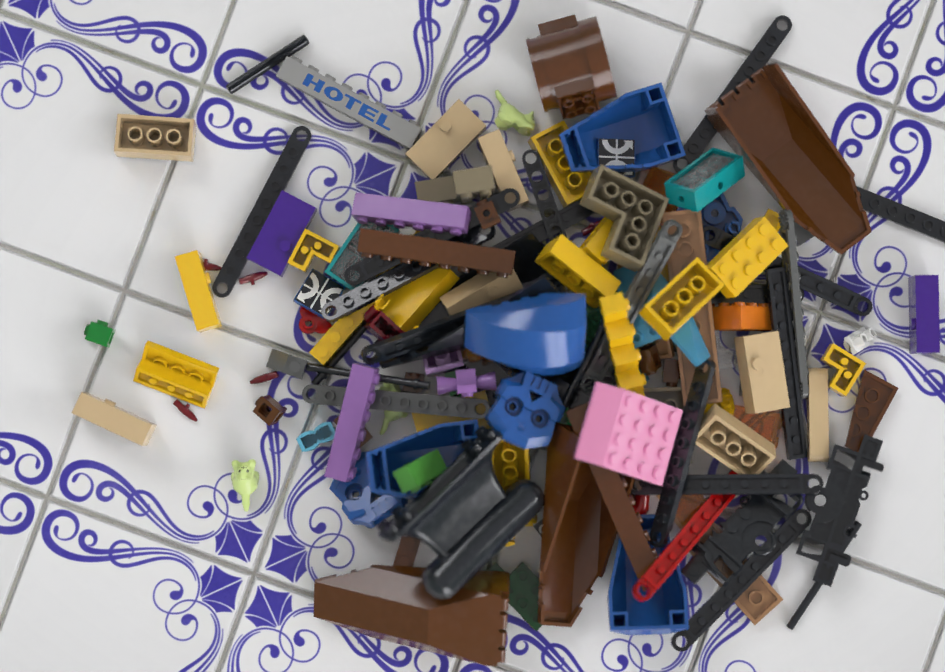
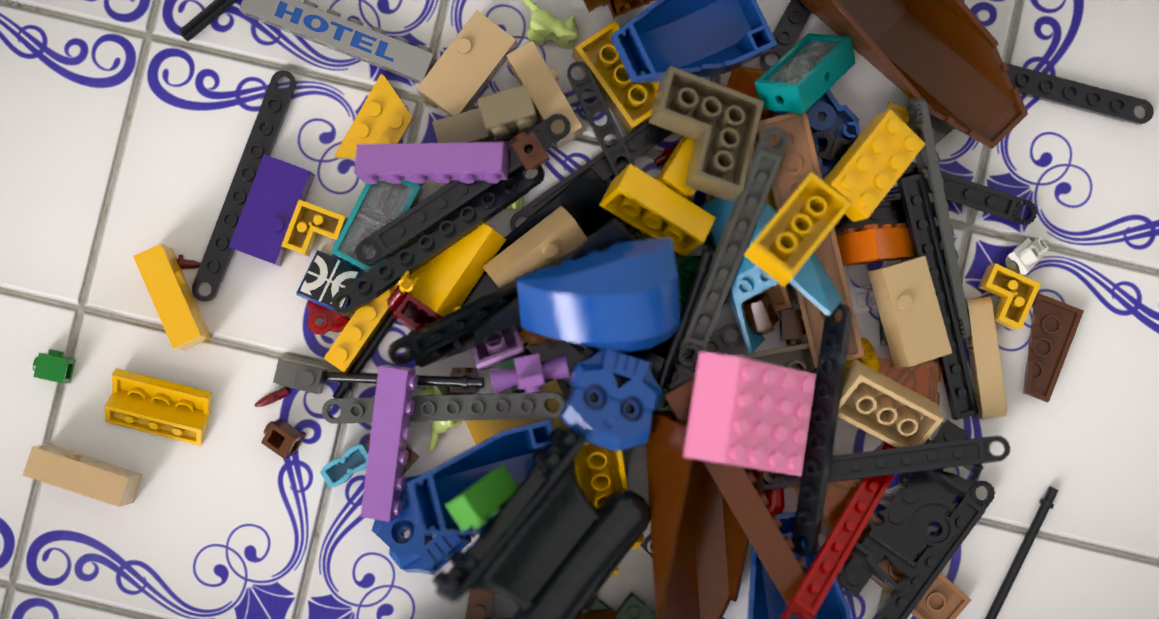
camera: 10 degrees left, 0 degrees up
(155, 137) = (94, 107): tan brick -> none
(185, 410) = (176, 451): dark red helmet -> none
(244, 480) = (262, 532): yellowish green animal -> none
(252, 277) = (242, 271): dark red helmet -> none
(371, 176) = (379, 121): none -> yellow wing
(435, 251) = (469, 207): reddish brown brick -> none
(616, 152) = (686, 52): tile -> none
(620, 339) = (724, 291): yellow brick -> none
(841, 507) = (1032, 474): black piece -> none
(924, 314) = (1106, 212): dark purple brick -> none

